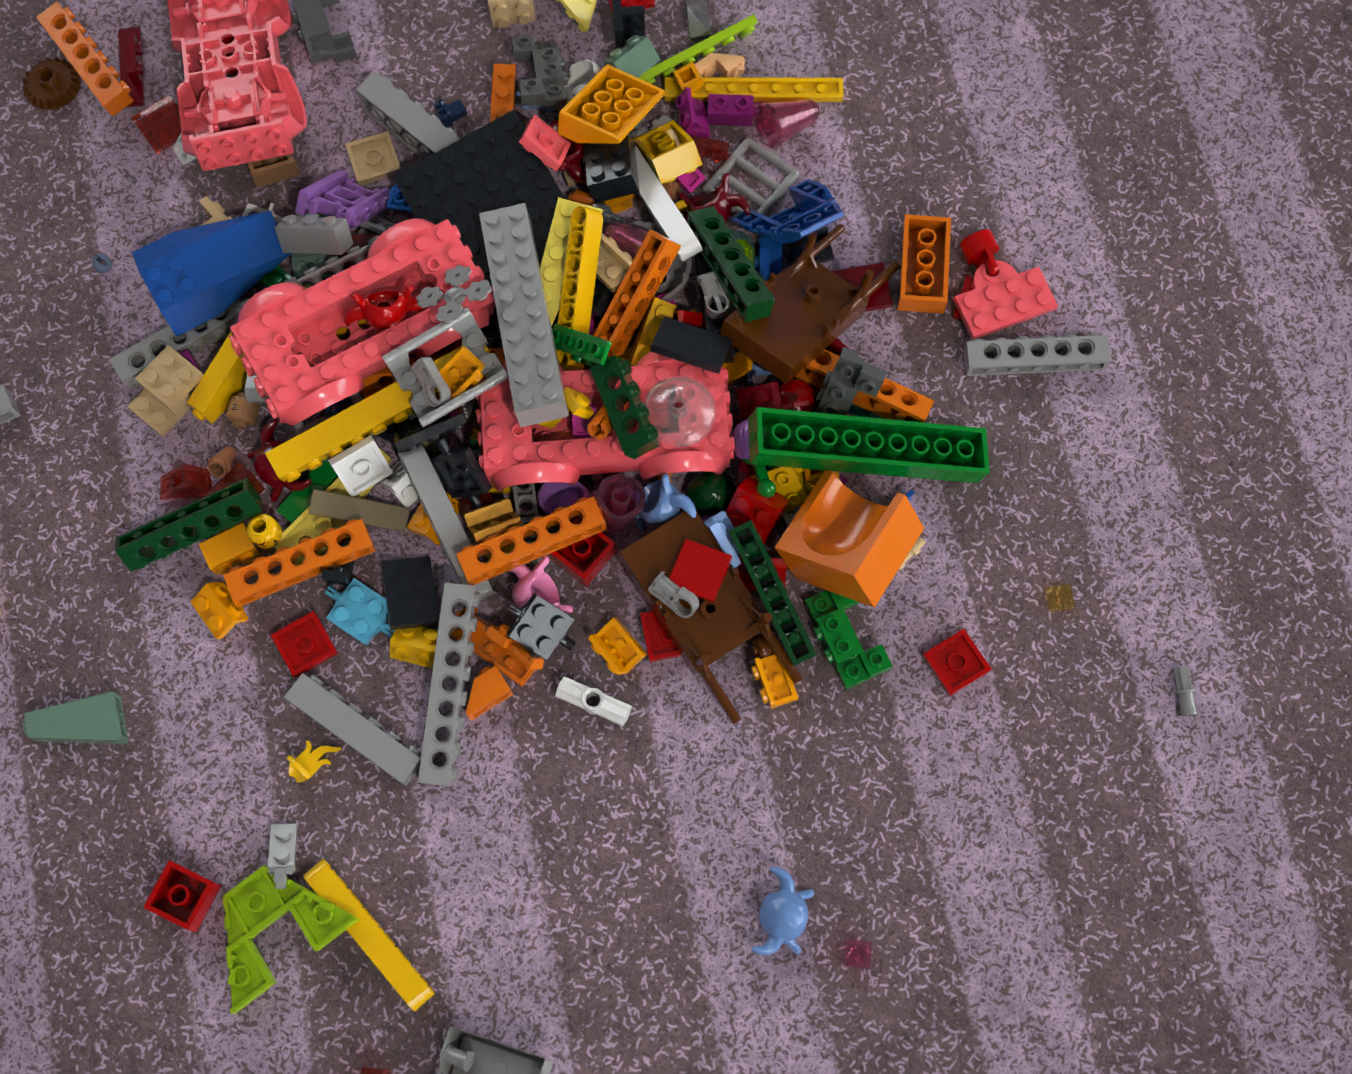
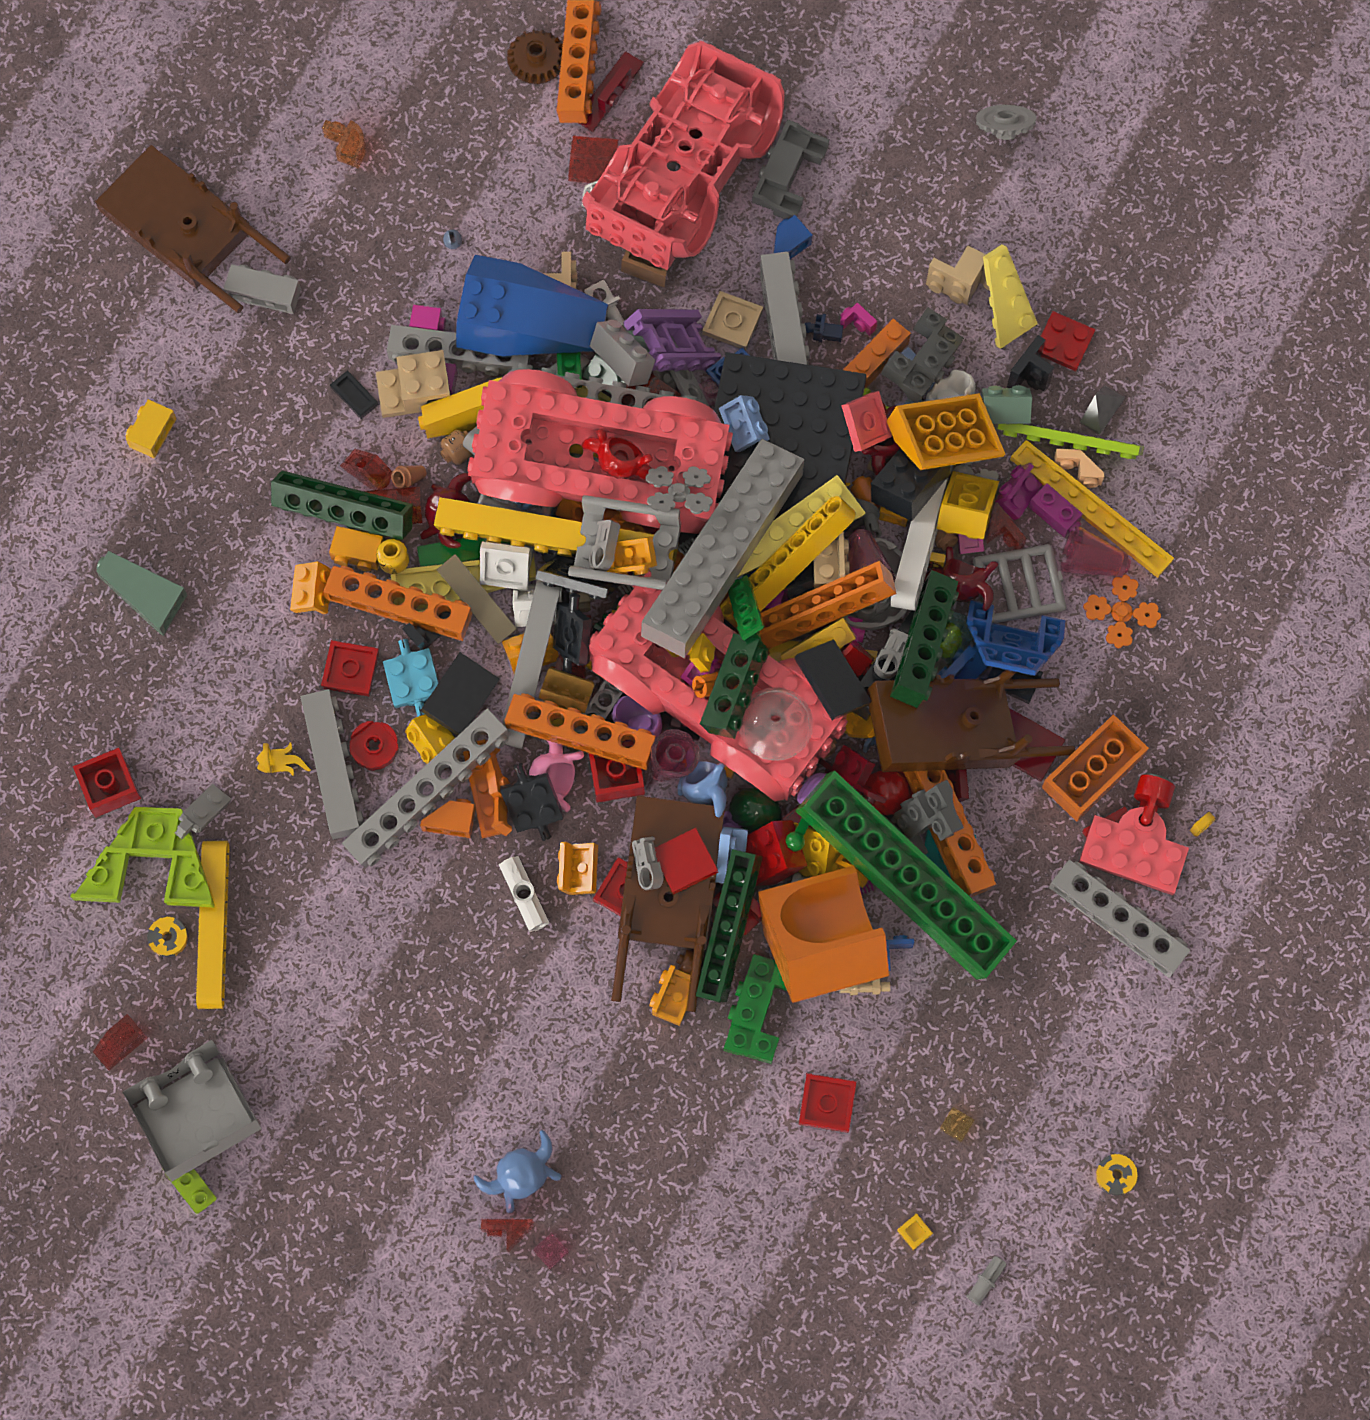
camera: 40 degrees right, 0 degrees up
(124, 437) = (354, 394): none -> black tile
(133, 333) = (427, 318): none -> dark pink brick
(350, 980) = (175, 944): none -> yellow piece
(364, 63) = (792, 237): none -> blue slope
(367, 676) = (373, 758): none -> red plate
(447, 206) = (744, 422): none -> light blue bracket
(467, 84) = (862, 319): none -> dark pink bracket
(689, 77) = (1041, 457): light orange brick -> none
(816, 962) = (515, 1229): none -> clear red slope
(839, 144) = (1122, 611): none -> orange plant
(1031, 243) = (1202, 824): none -> yellow tile
(1102, 701) = (914, 1231): none -> yellow tile
(1193, 545) = (1108, 1182): none -> yellow piece

